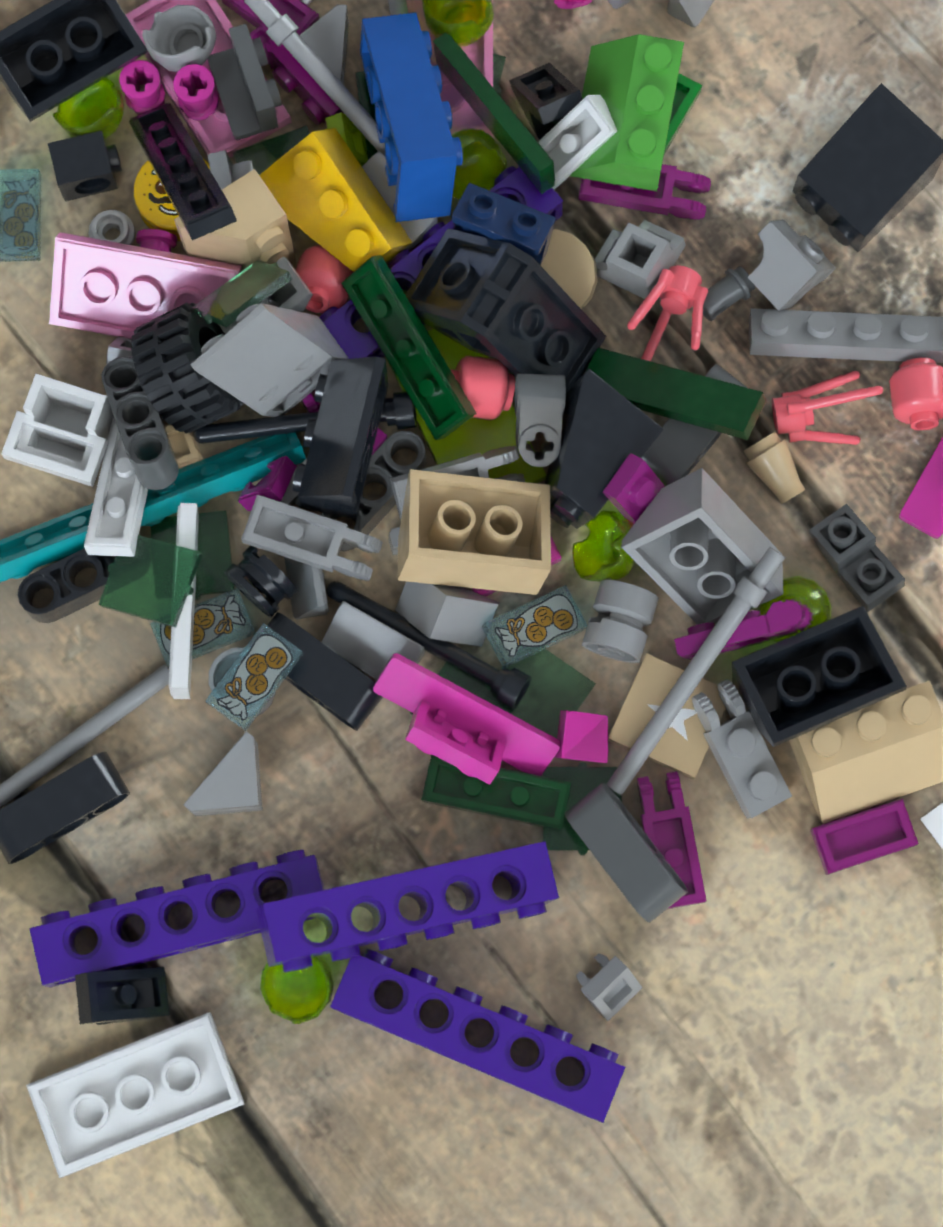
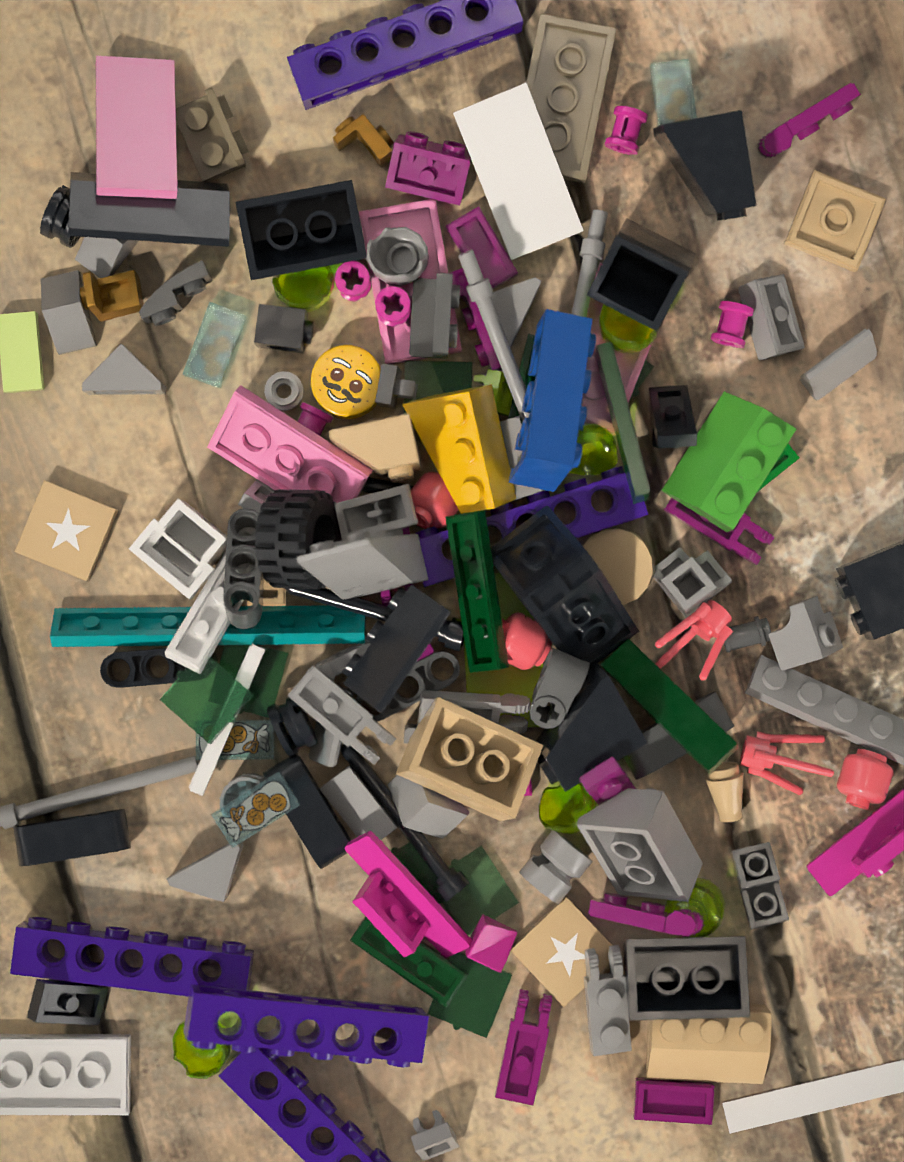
camera: 20 degrees right, 10 degrees up
(182, 171) = (352, 385): black tile -> none
(241, 292) = (361, 507): piece -> none
(272, 485) = (327, 656): magenta tile -> none
(504, 220) = (591, 525): dark blue bracket -> none
(534, 626) = (489, 842): tile -> none
(578, 136) = (680, 469): white slope -> none
(626, 852) = (486, 1048): dark grey beam -> none
(748, 593) = (658, 898): light grey bar -> none

